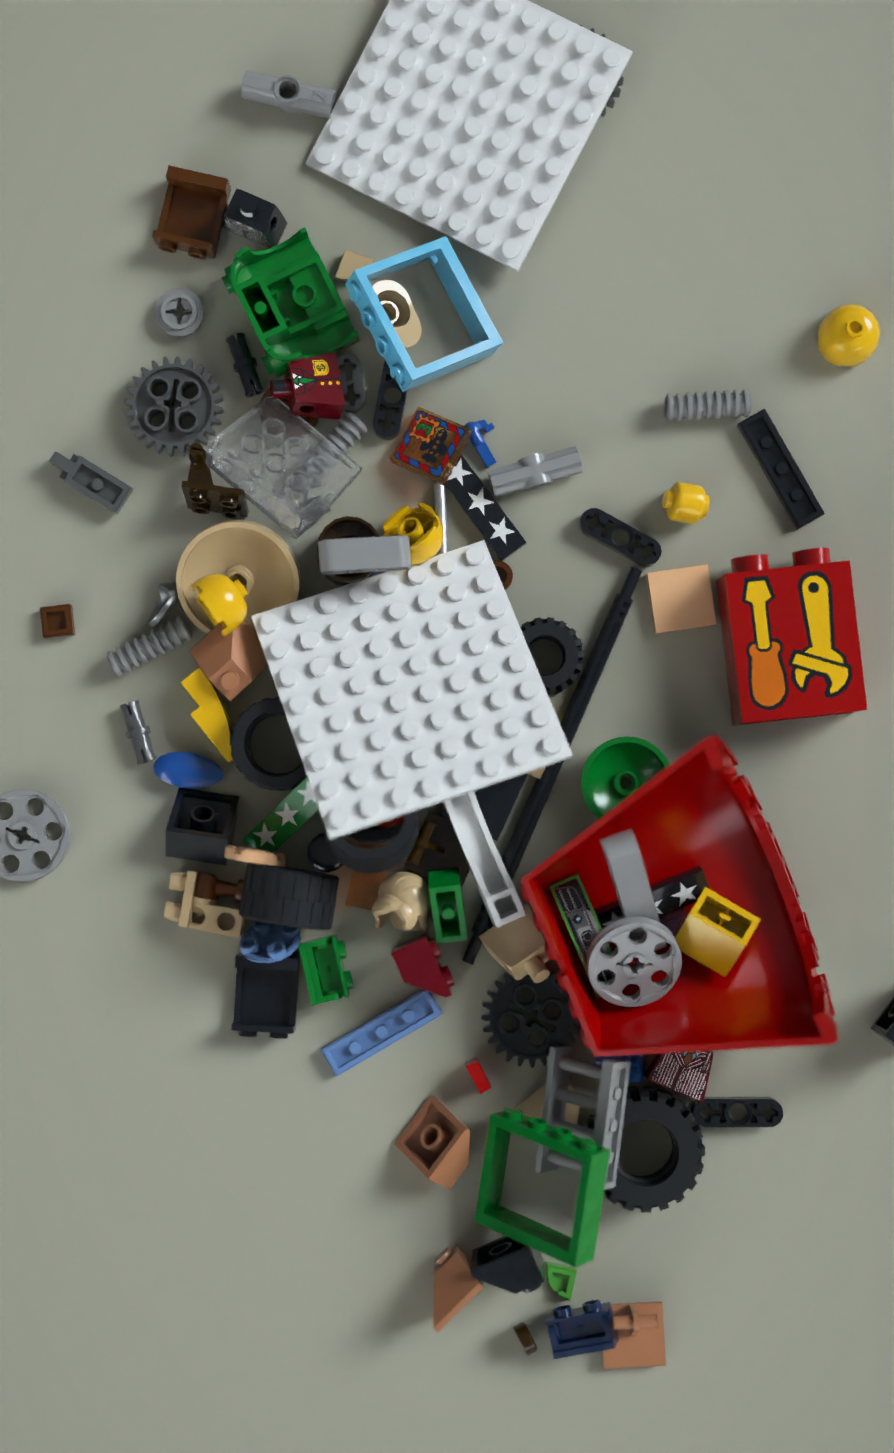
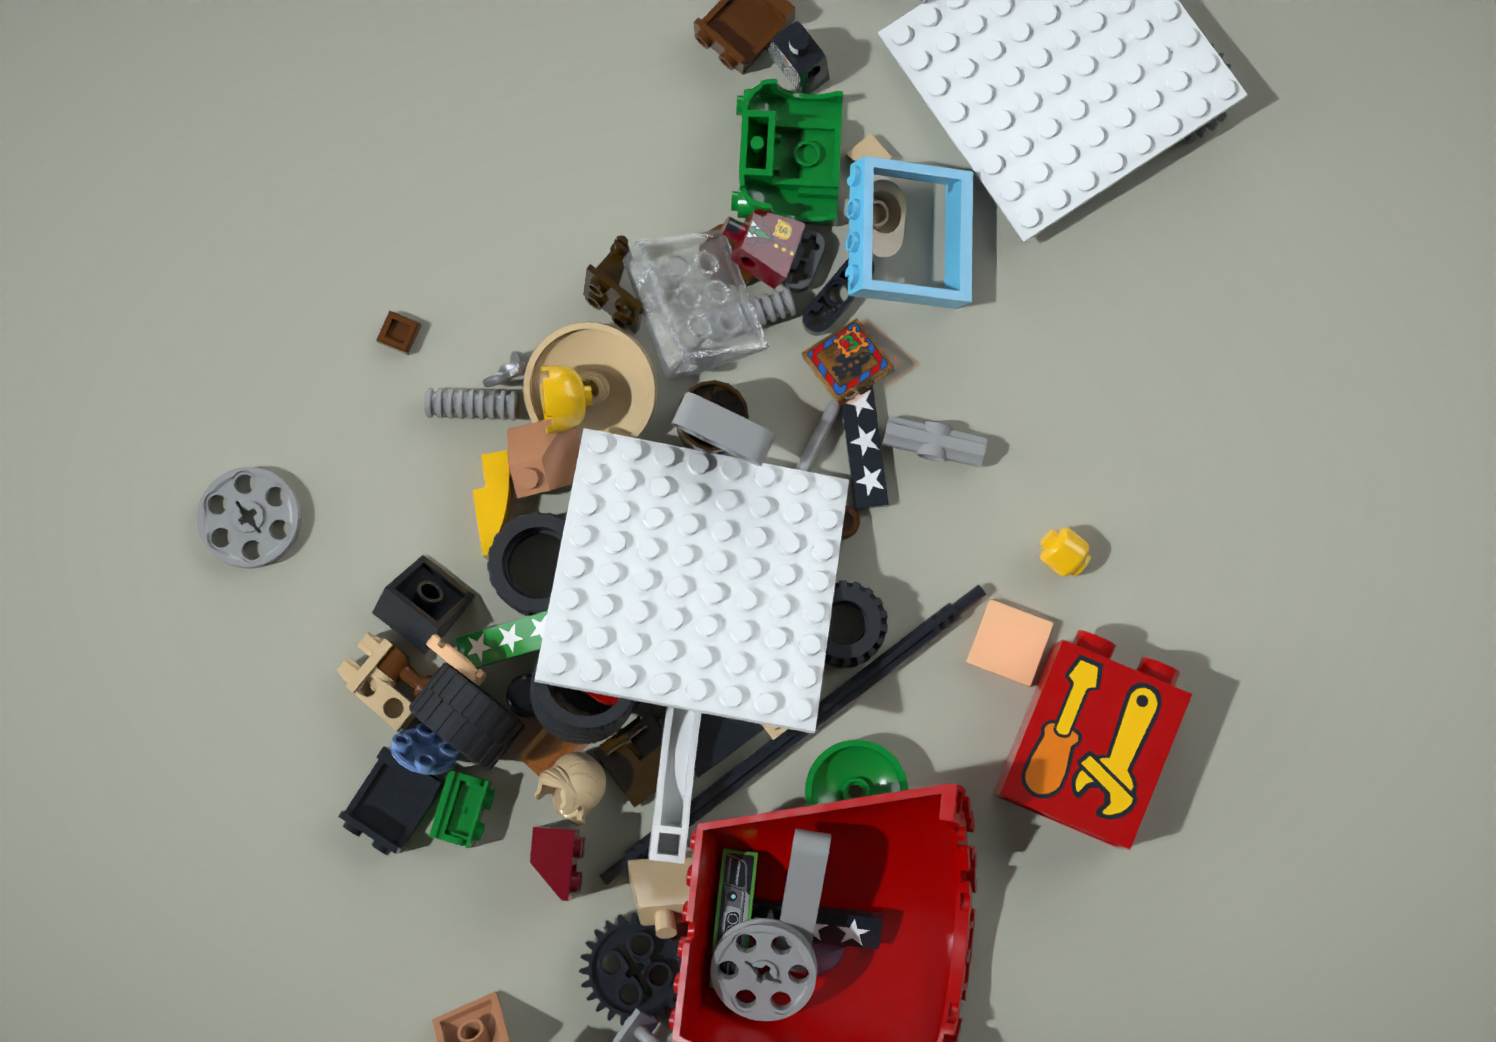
camera: 30 degrees right, 5 degrees down
(92, 481) = (507, 220): dark grey hinge -> none
(138, 732) = (414, 480): dark grey pin -> none
(147, 405) = (599, 176): dark grey gear -> none
(169, 303) = (675, 93): light grey gear -> none
(187, 770) = (440, 542): blue arm -> none
(245, 364) = (713, 189): black pin -> none
(381, 1031) = (482, 901): medium blue tile -> none
(423, 530) = (794, 436): yellow cylinder -> none
(447, 905) = (614, 813): green brick -> none
(478, 1075) = (551, 997): red tile -> none
(479, 443) = (896, 384): blue piece -> none
(603, 520) = (962, 533): black beam -> none
(707, 405) = (1138, 469): light grey piece -> none
(716, 932) = (861, 986): yellow slope -> none
(780, 469) = (1176, 571): black tile -> none
(848, 335) = (1313, 478): yellow cylinder -> none

